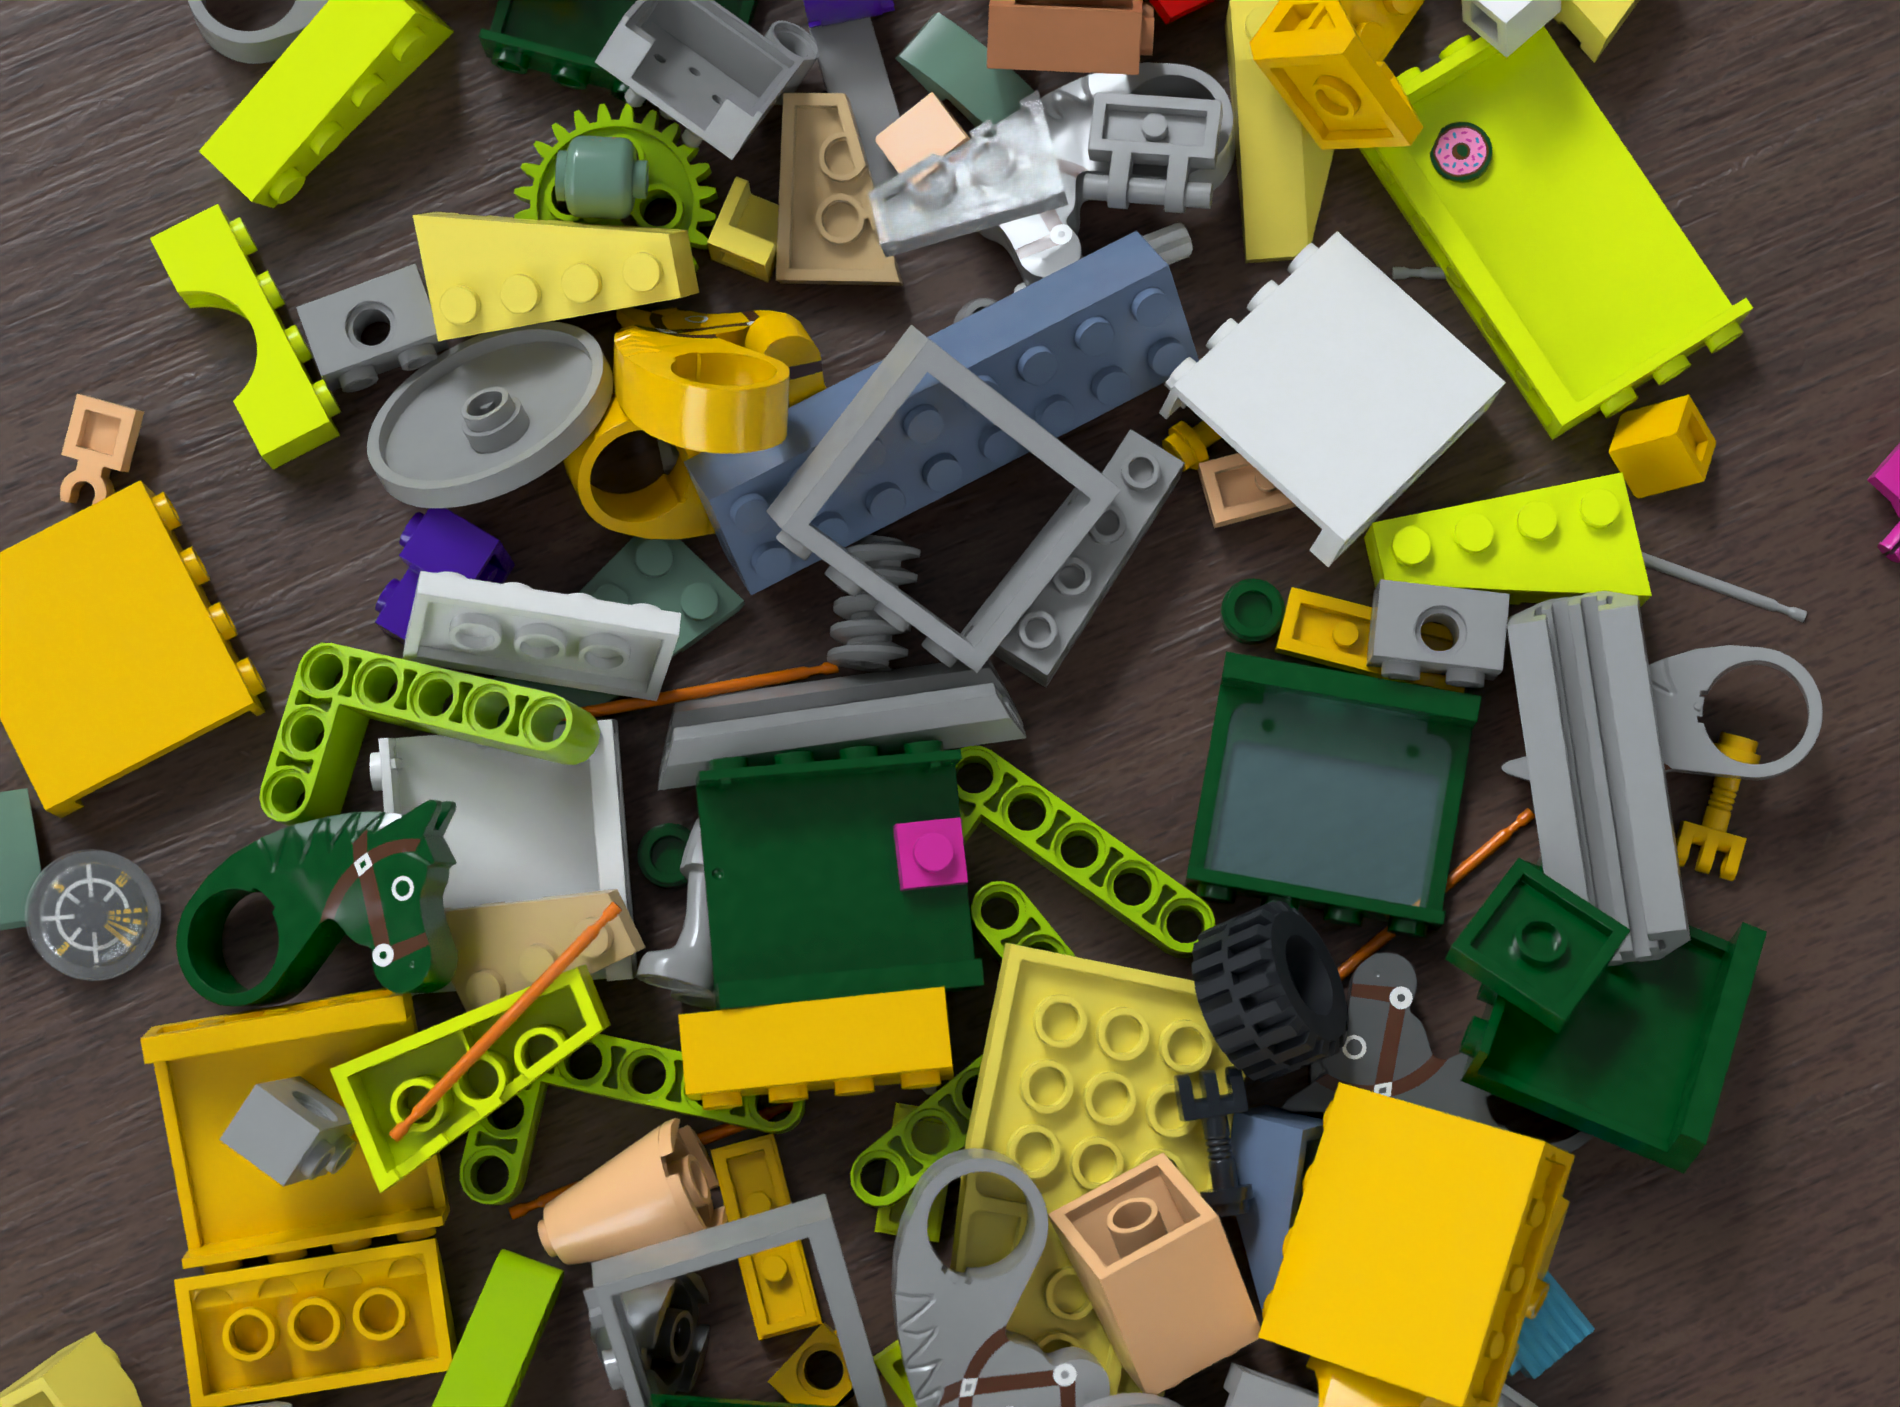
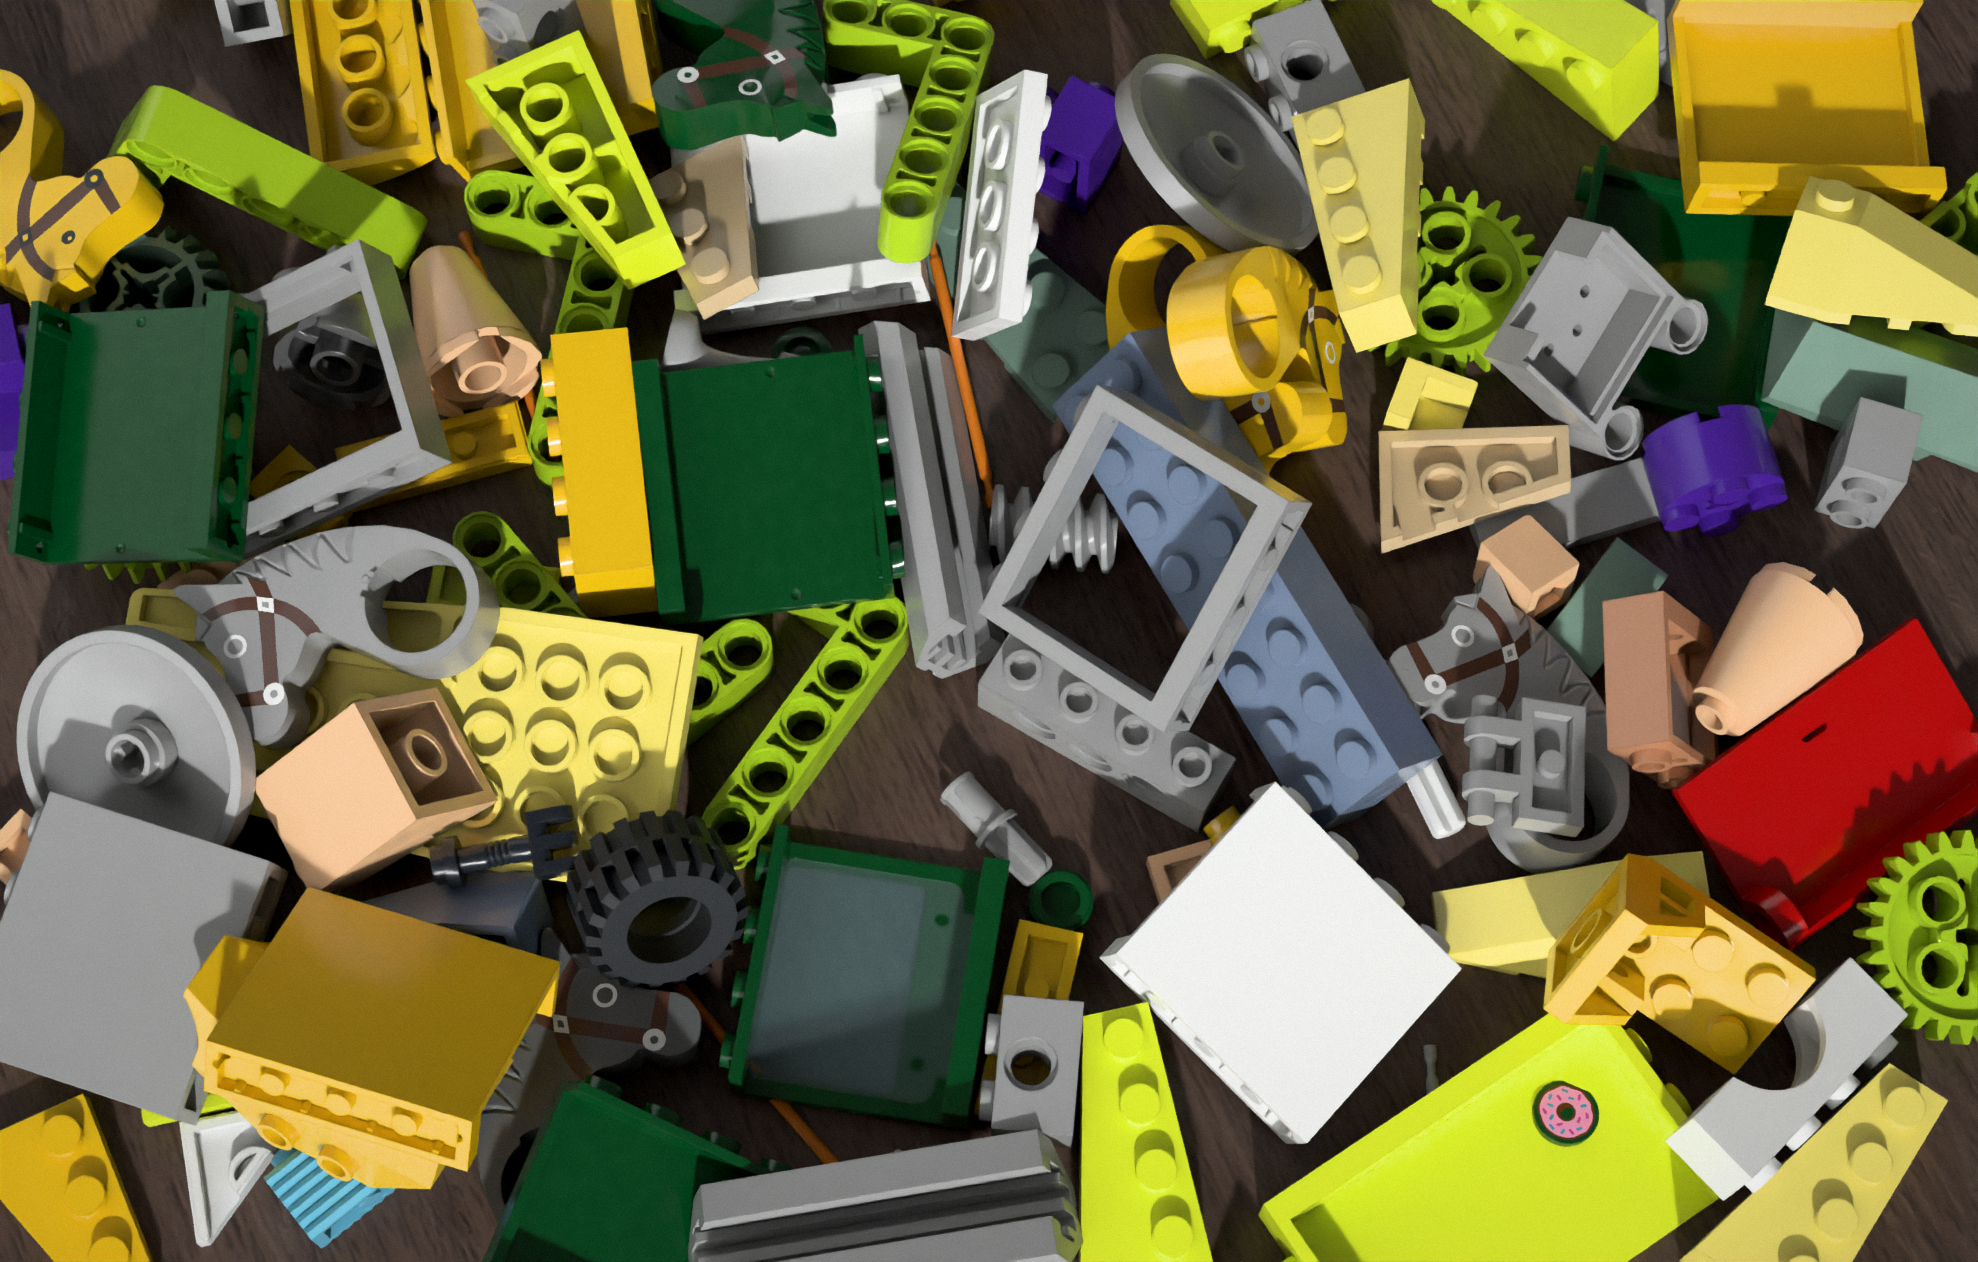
camera: 85 degrees right, 10 degrees down
(505, 1021) = (621, 173): orange piece -> none
(600, 177) = (1462, 248): sand green head -> none
(930, 854) = (794, 570): dark pink plate -> none
(984, 183) = (1482, 607): clear wing -> none
(1181, 669) = (996, 829): none -> light grey axle
(1538, 945) = (694, 1151): dark green plate -> none

